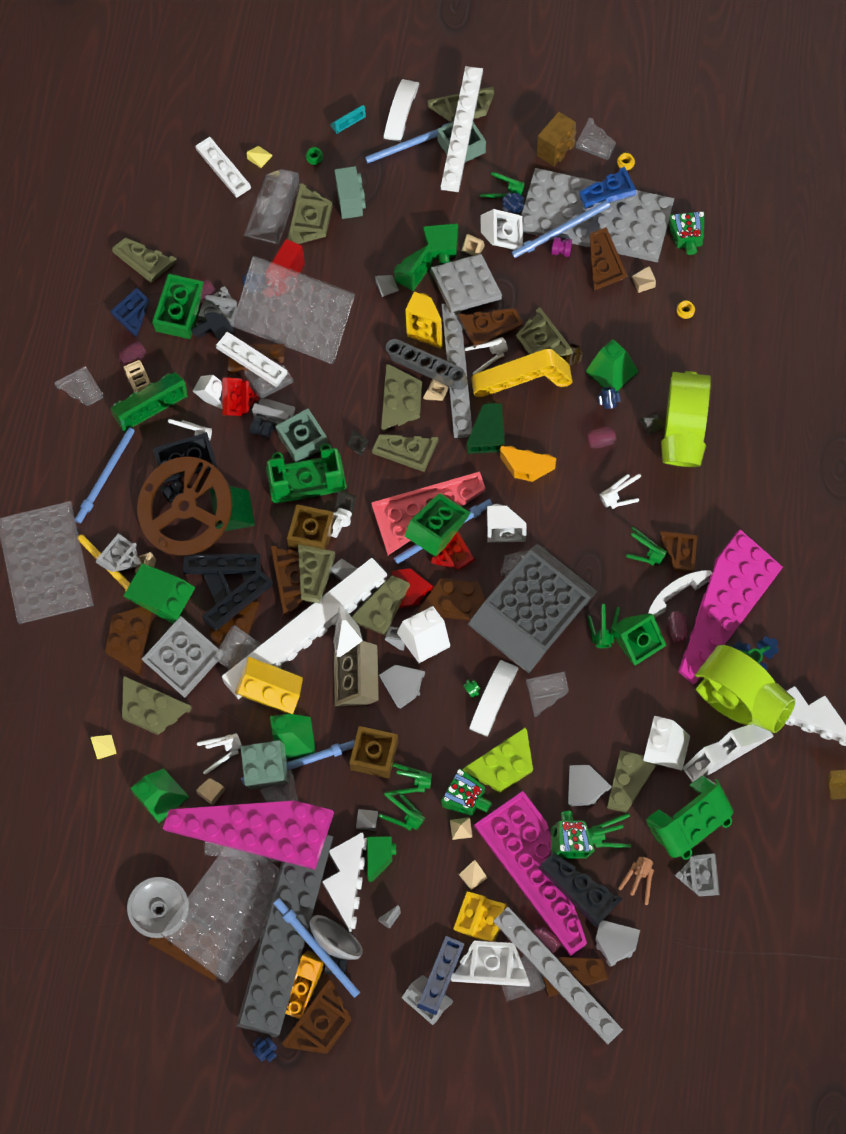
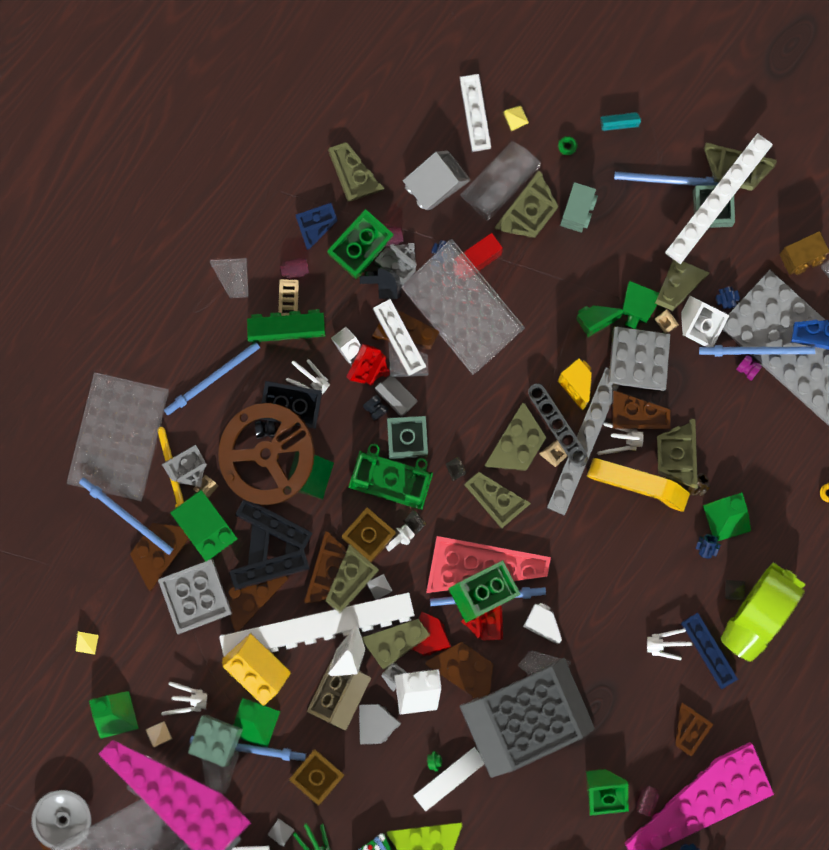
camera: 20 degrees right, 15 degrees up
(48, 612) = (96, 492): none -> medium blue bar
(150, 707) = (143, 627): olive wing -> none
(216, 230) = (435, 180): none -> light grey slope
(235, 647) = (245, 615): clear wing -> none
(386, 285) = (565, 319): light grey slope -> none
(400, 109) = (676, 137): white slope -> none
(422, 779) = (346, 823): green plant -> none
(466, 210) = (679, 283): none -> olive wing
(488, 430) = (581, 519): dark green slope -> none
(514, 186) = (740, 279): green plant -> none
(526, 463) = (597, 571): light orange slope -> none
(546, 690) = (499, 797): clear wing -> none
(601, 437) = (679, 582): clear pink brick -> none
(603, 638) = (576, 775): green plant -> none
(605, 260) = (781, 404): reddish brown wing -> none
(644, 280) = (807, 441): tan slope -> none
(655, 553) = (665, 721): green plant -> none
(659, 480) = (709, 651): none -> dark blue plate
(694, 579) = (688, 766): white slope -> none

